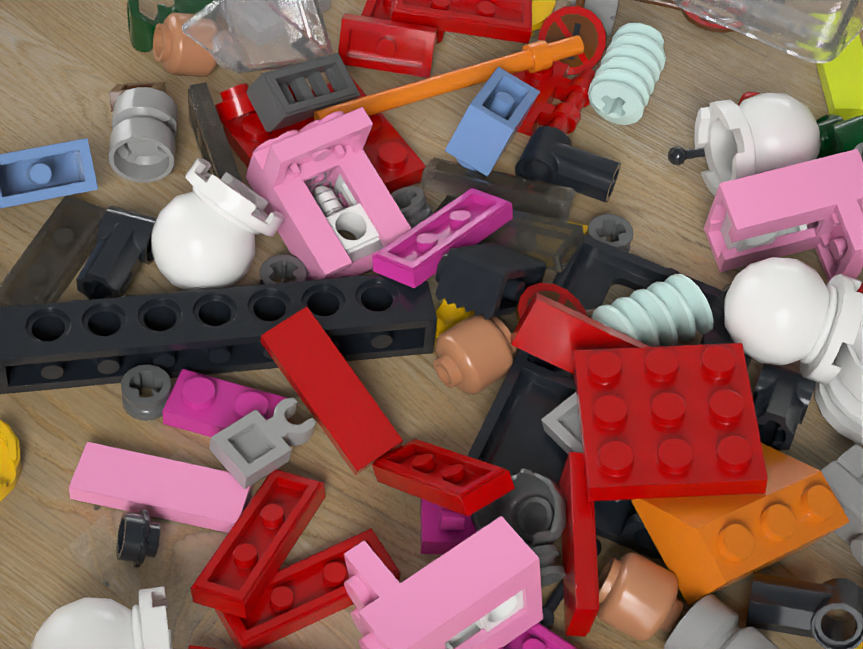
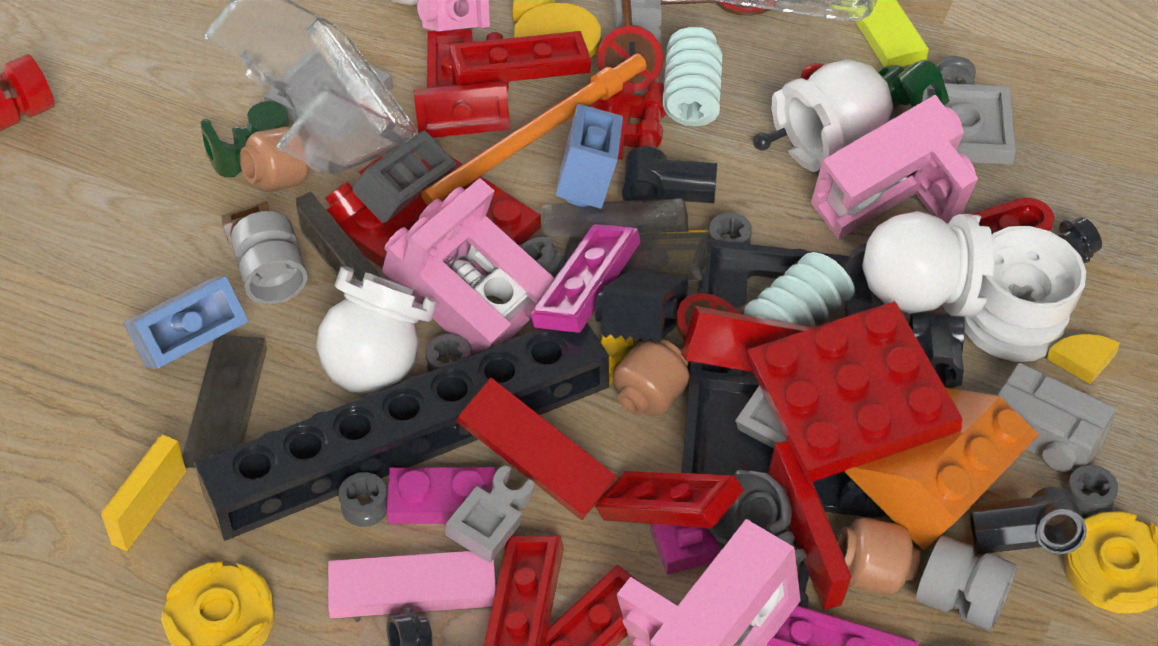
camera: 10 degrees left, 0 degrees up
(121, 248) = (288, 368): black piece -> none

